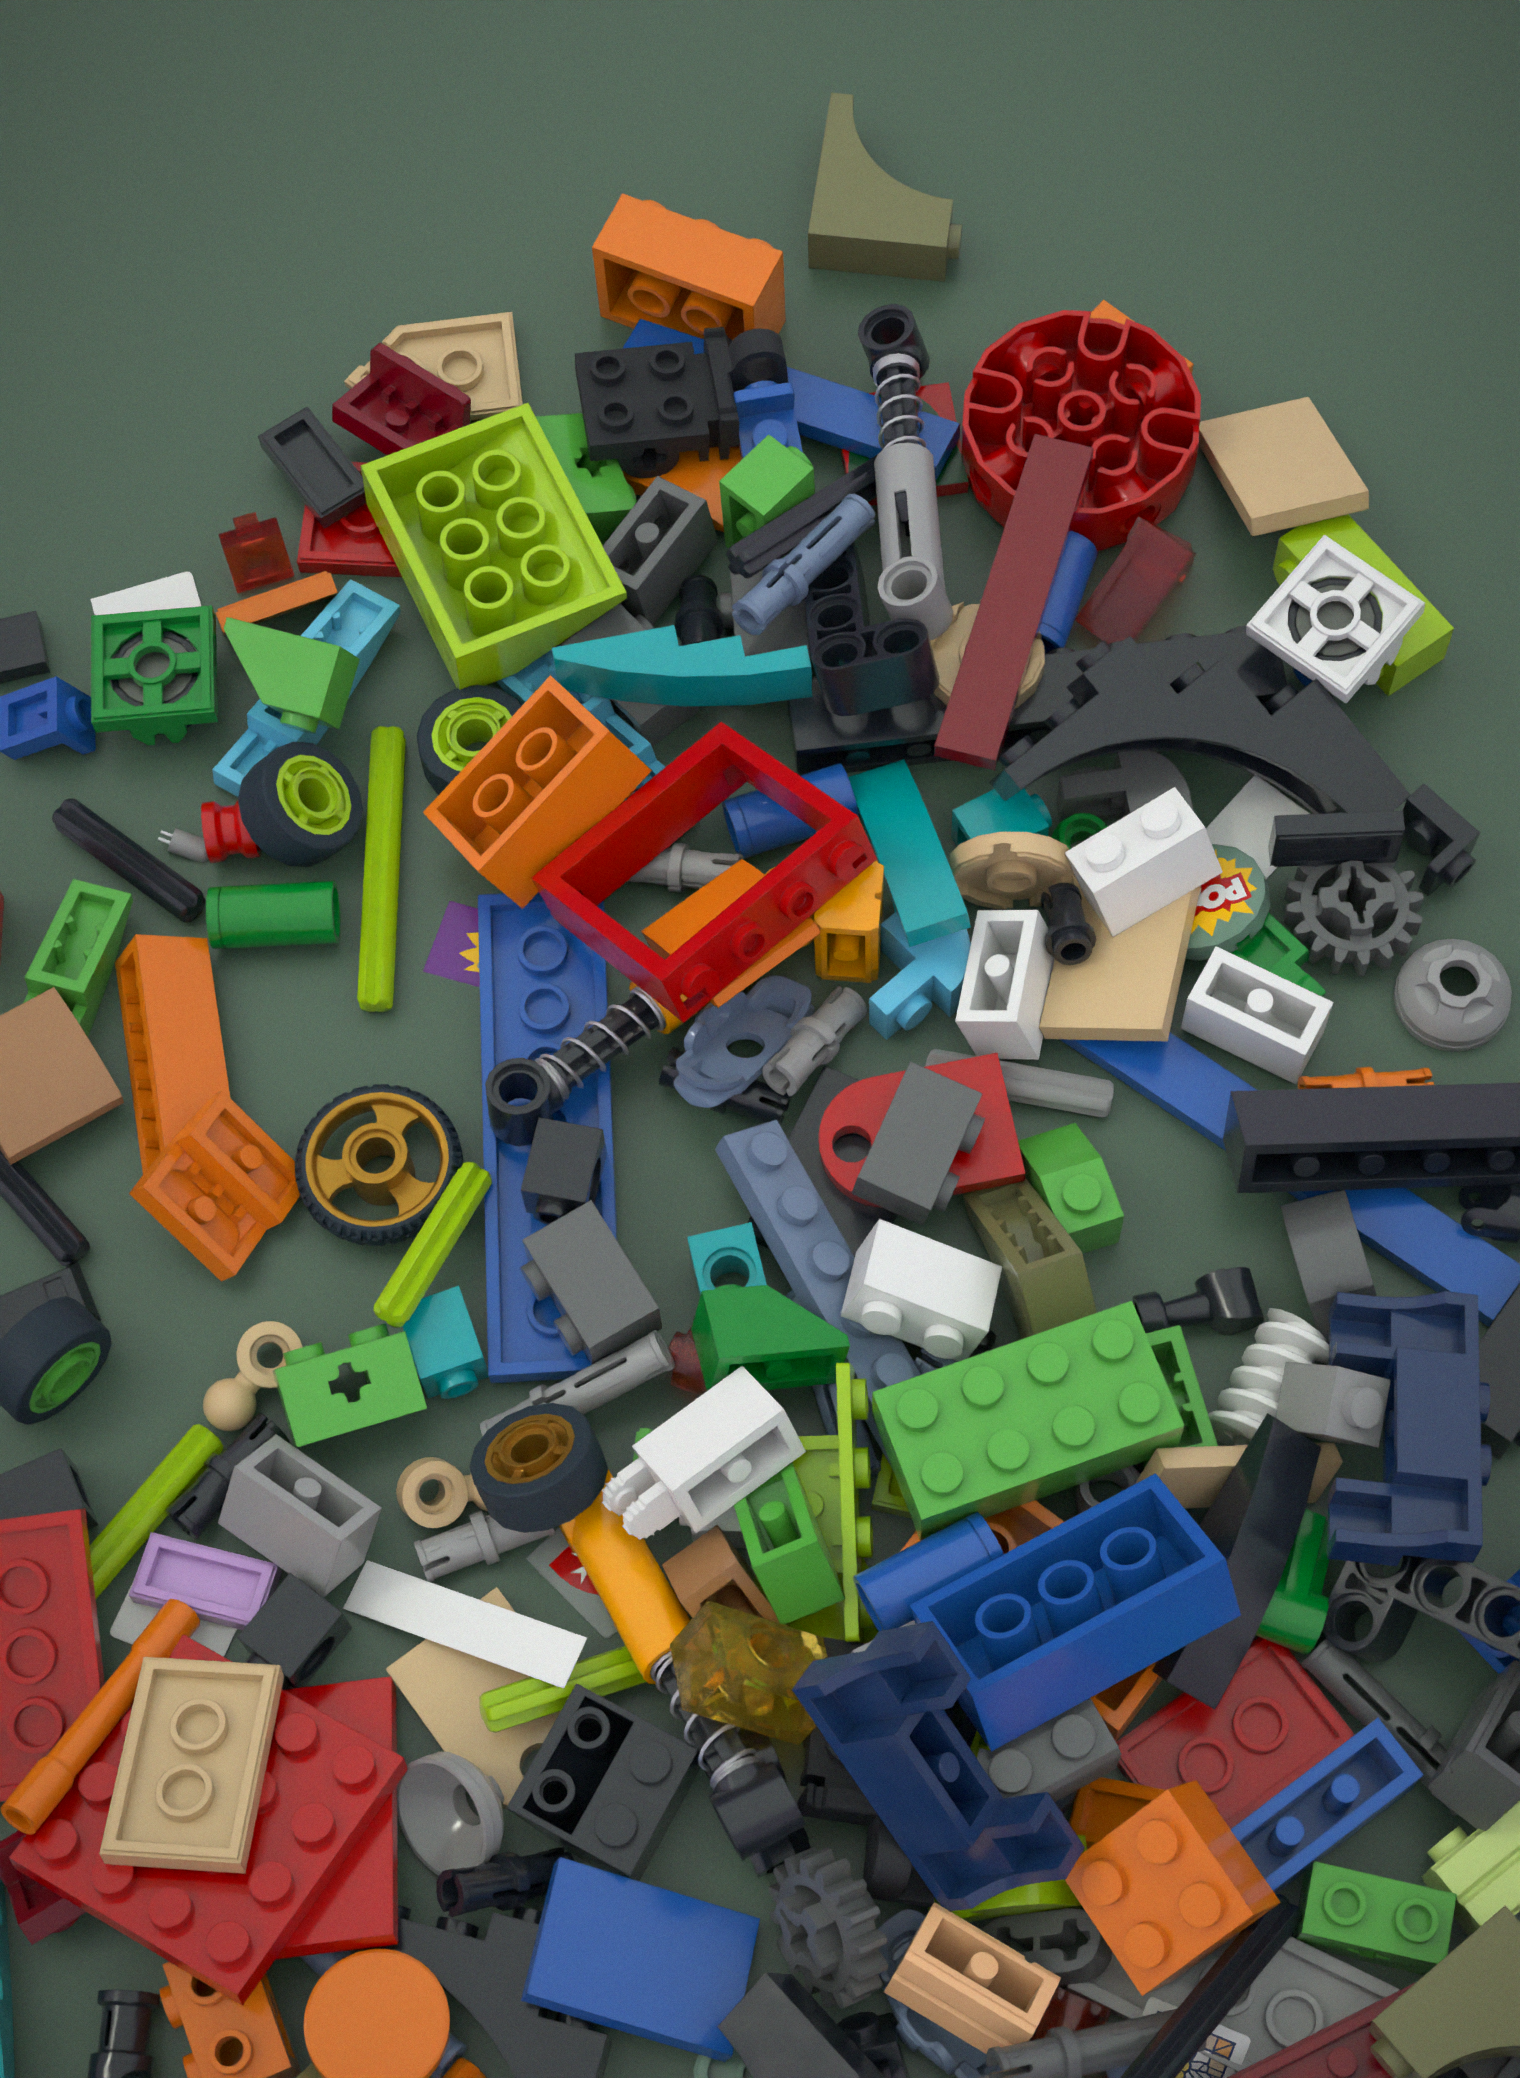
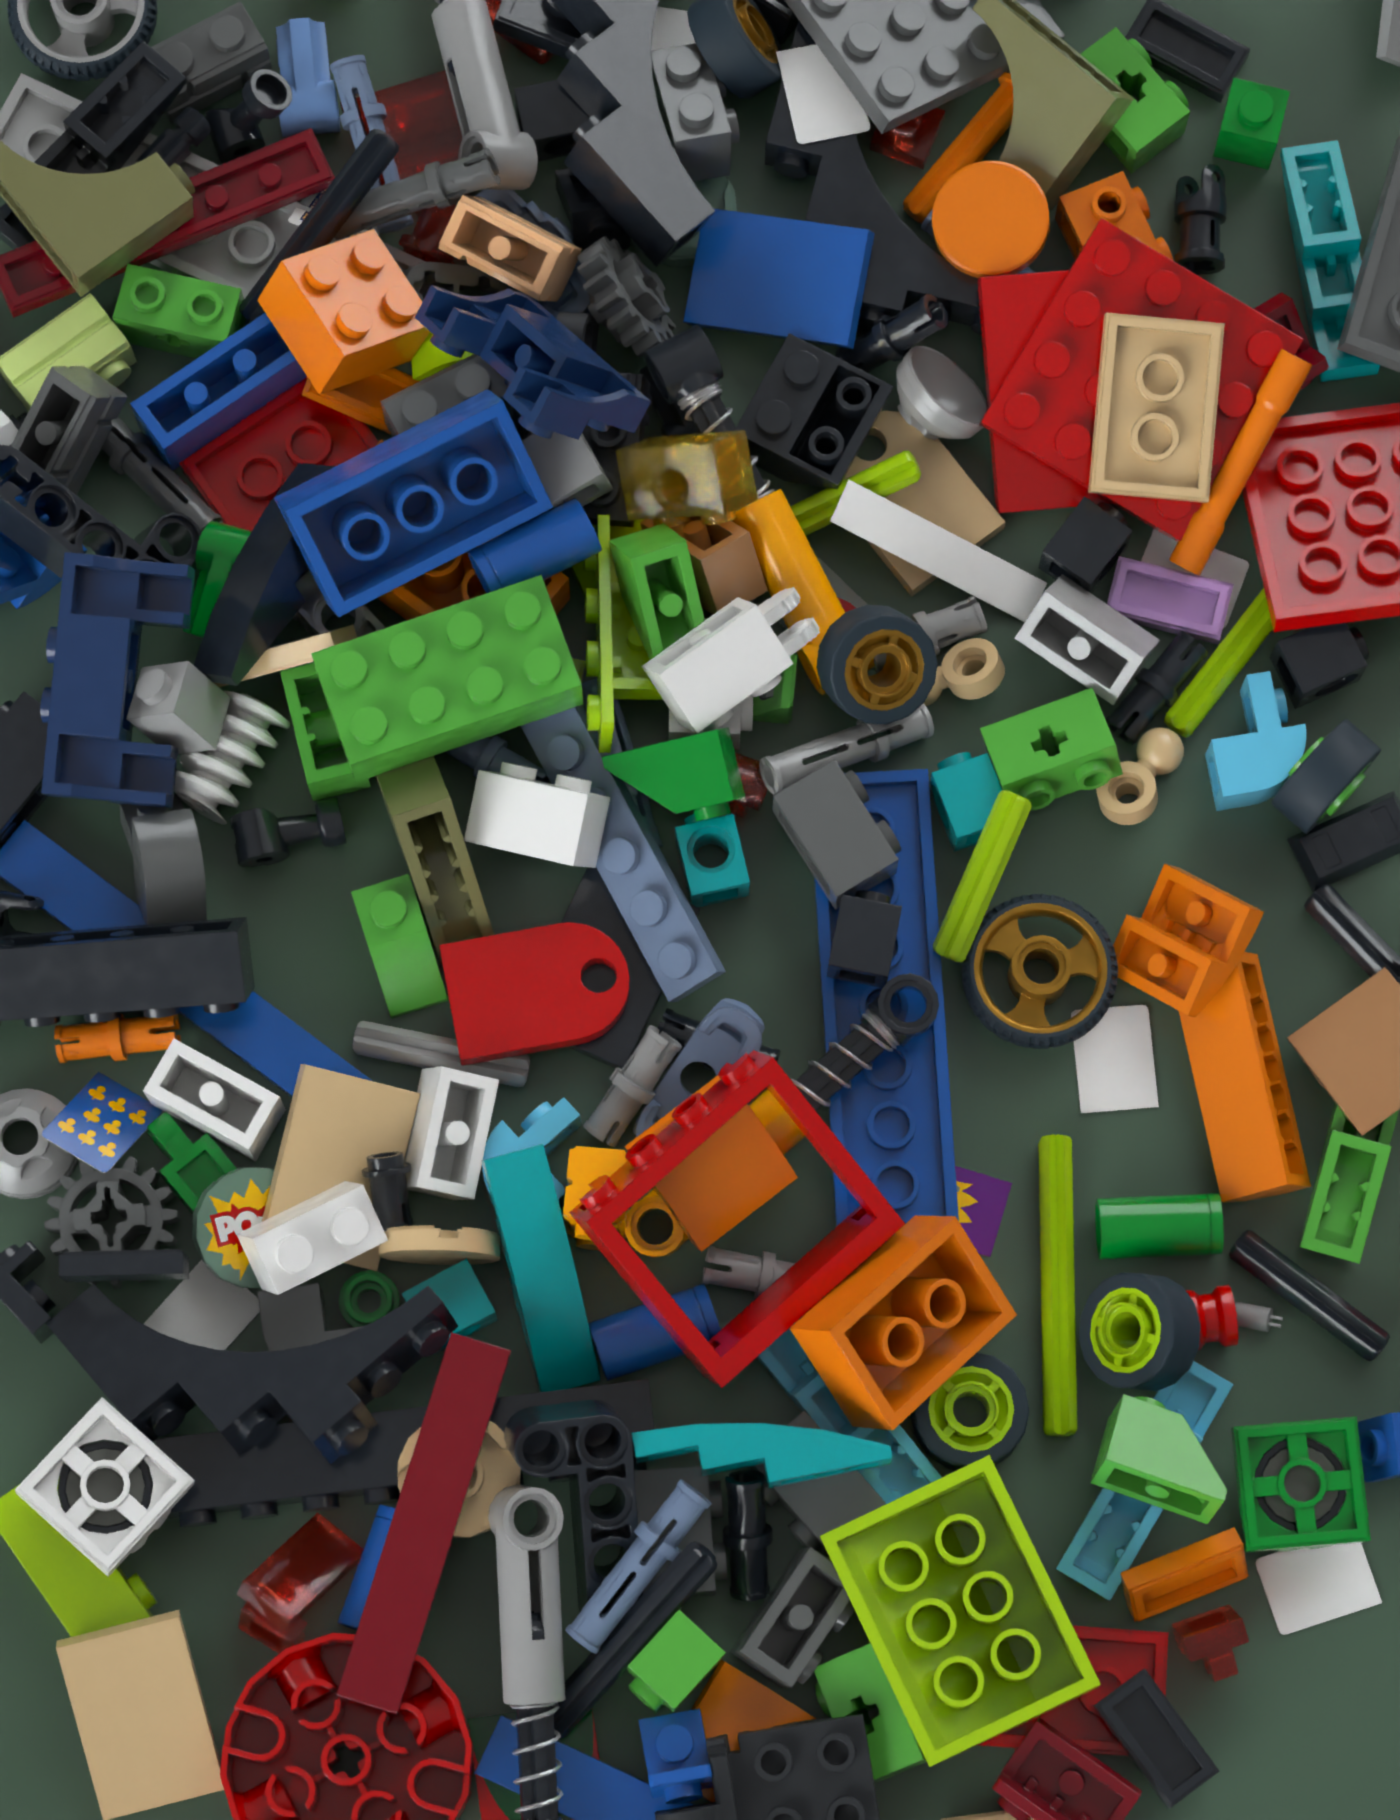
camera: 175 degrees right, 10 degrees up
(118, 1387) = (1255, 764): none -> medium azure brick
(300, 1082) = (1117, 1062): none -> white sticker
(918, 1144) = (536, 956): dark grey brick -> none
(1376, 1000) = (101, 1122): none -> blue sticker

